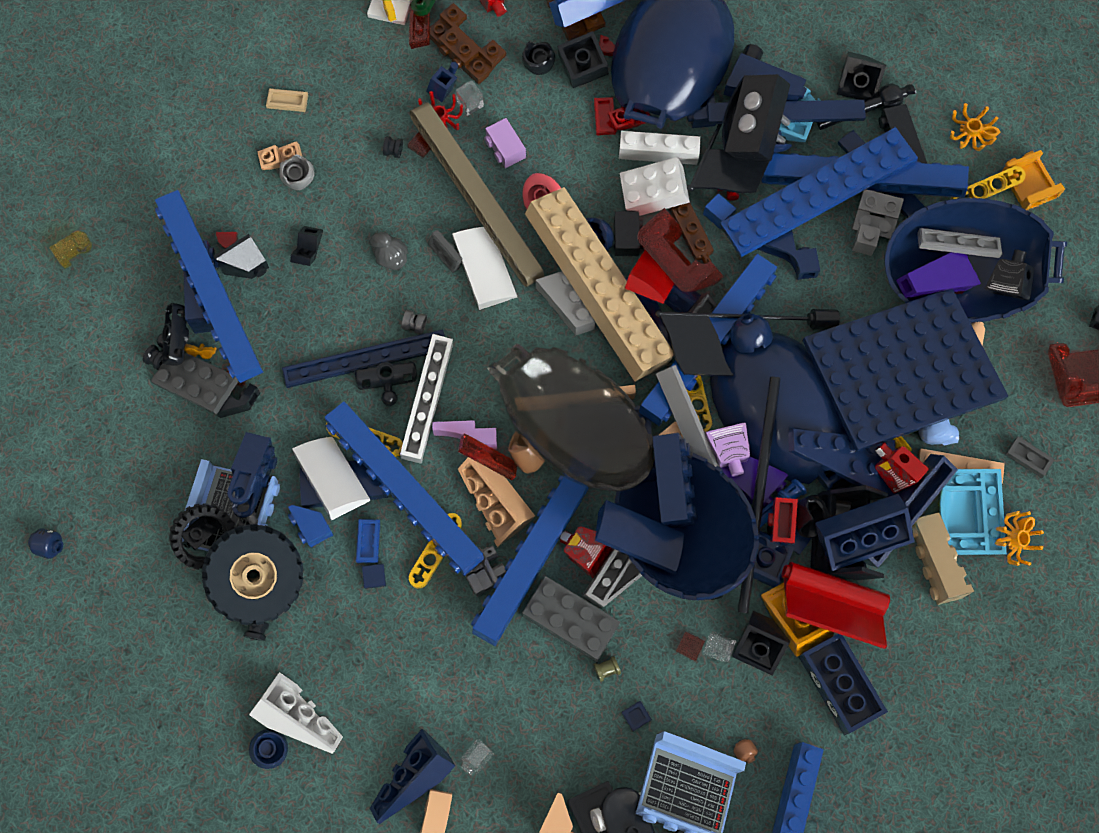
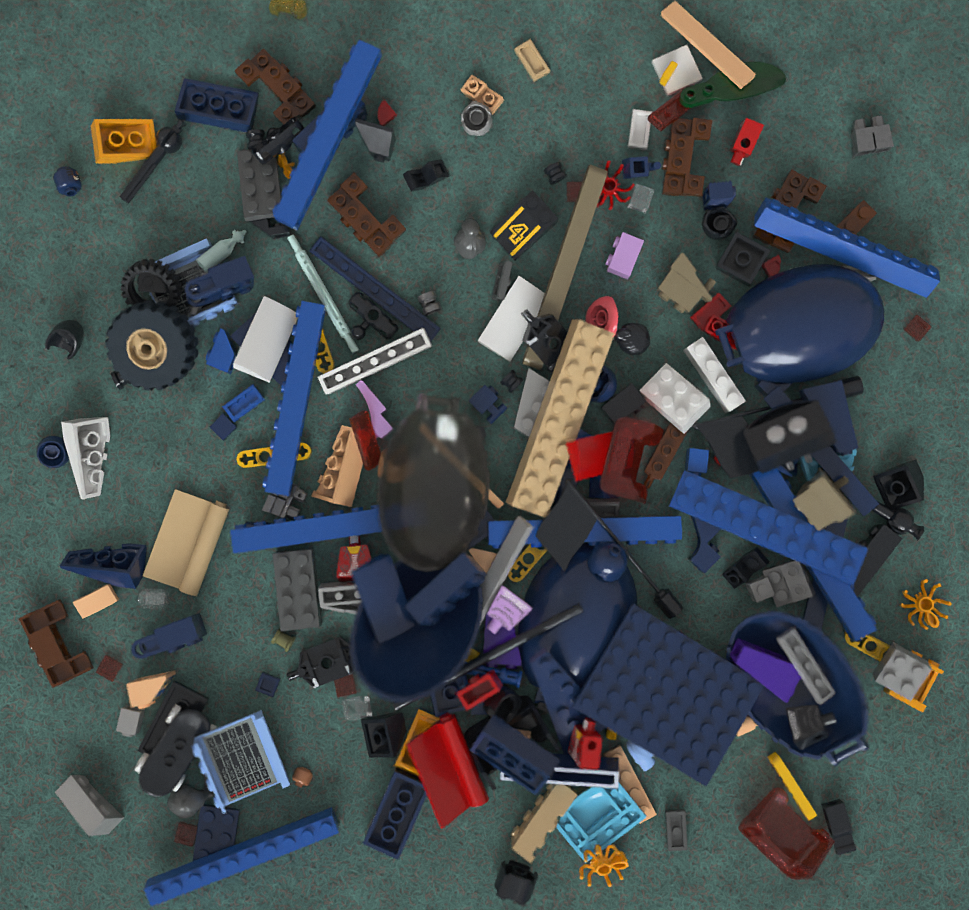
camera: 50 degrees right, 15 degrees up
(54, 468) = (122, 139): none -> light orange slope
(91, 429) = (167, 141): none -> black piece
(98, 368) = (217, 105): none -> dark blue slope
(126, 302) = (281, 84): none -> reddish brown bracket
(179, 651) = (67, 336): none -> black piece
(221, 460) = (220, 251): none -> light aqua wheel
(297, 323) = (360, 219): none -> reddish brown bracket
(331, 402) = (323, 294): none -> light aqua axle
(413, 62) = (639, 129): none -> white tile
(414, 200) = (524, 225): none -> black slope
(449, 689) = (186, 542): none -> tan door
(515, 39) = (718, 195): none -> dark blue brick
(515, 248) = (538, 336): none -> black plate
(526, 764) = (171, 637): none -> dark blue brick
(533, 337) = (484, 401): none -> dark blue brick
(535, 305) = (511, 381): none -> black wheel
(567, 114) = (683, 286): none -> dark tan piece
(579, 184) = (633, 338): none -> black hair
(653, 662) = (311, 665): none -> black plate
(829, 131) = (823, 501): none -> dark tan piece
(838, 238) = (745, 567): none -> black slope
(981, 625) = (515, 882): none -> black brick
(1018, 177) = (902, 671): none -> light grey brick
(1056, 335) = (792, 786): none -> yellow beam

